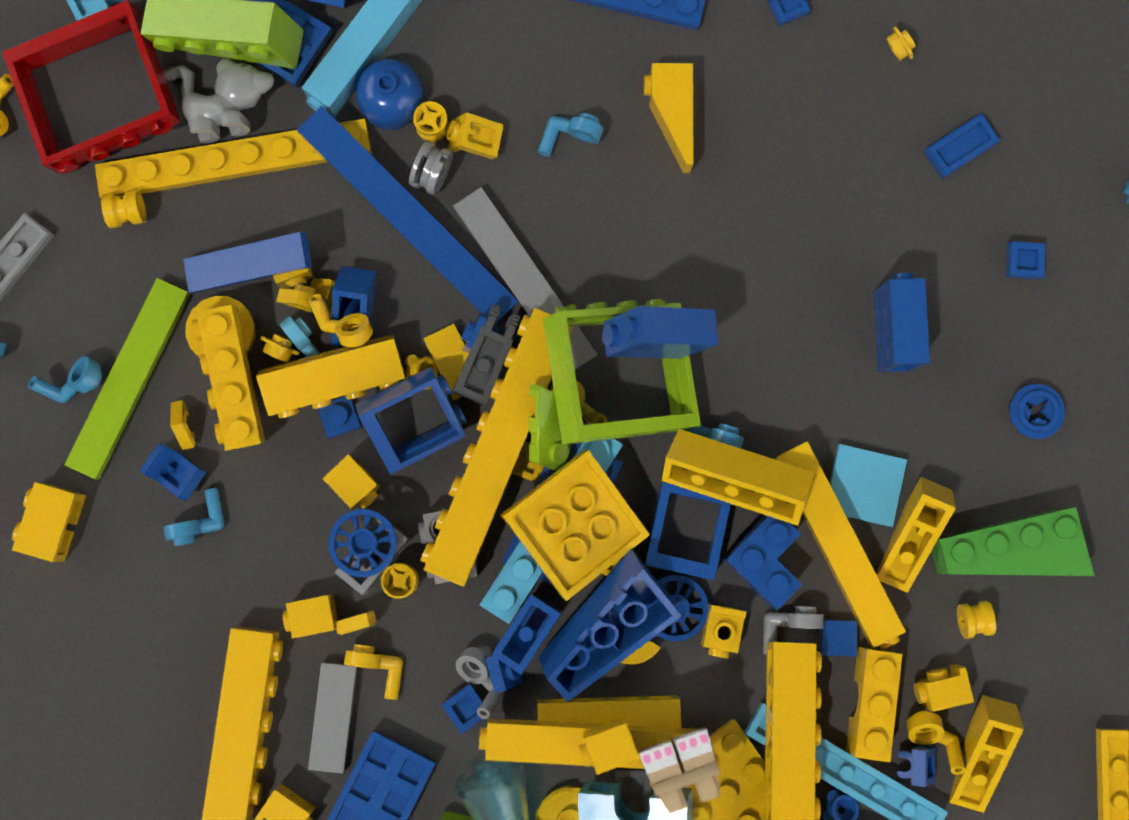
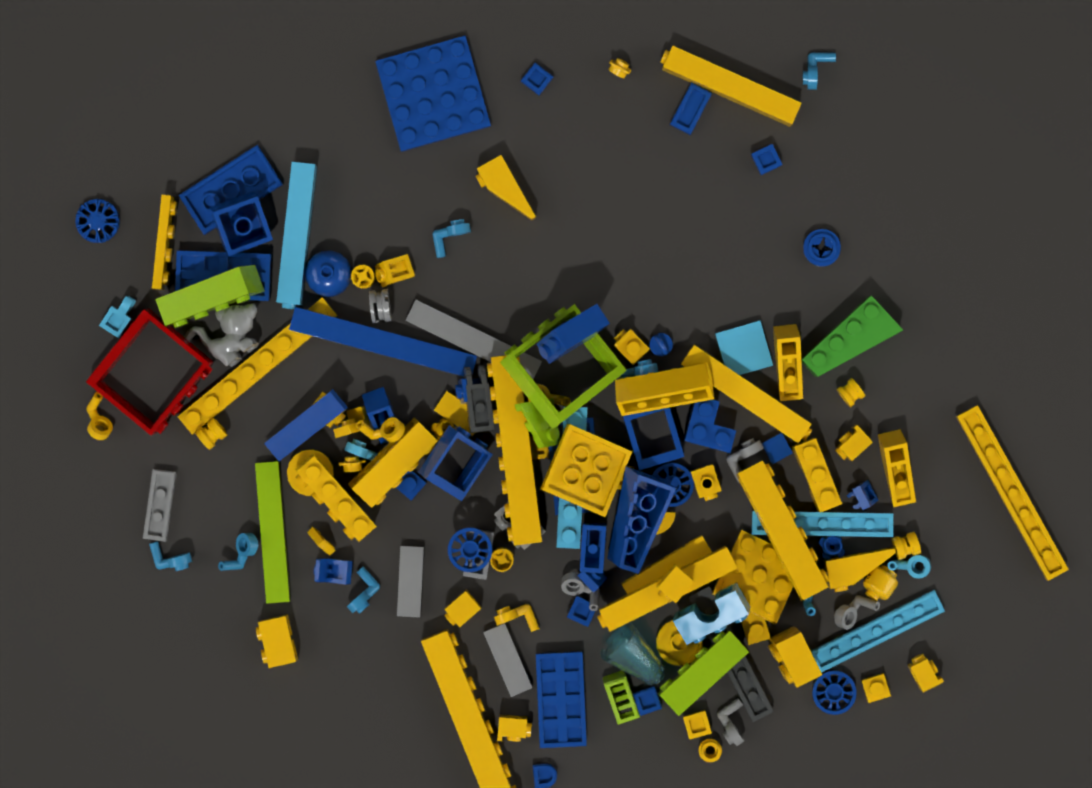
camera: 25 degrees left, 5 degrees up
(266, 542) = (410, 581): none -> light grey tile
(353, 483) = (442, 518): yellow brick -> none
(356, 622) = (490, 597): yellow tile -> none
(697, 764) = (729, 566): hips -> none
(721, 398) = (630, 346): none -> yellow bracket
(761, 419) = (661, 344): none -> blue tile
(901, 324) = (711, 243): blue brick -> none
(927, 729) = (856, 472): yellow plate -> none
(1031, 143) = (730, 85): none -> yellow brick

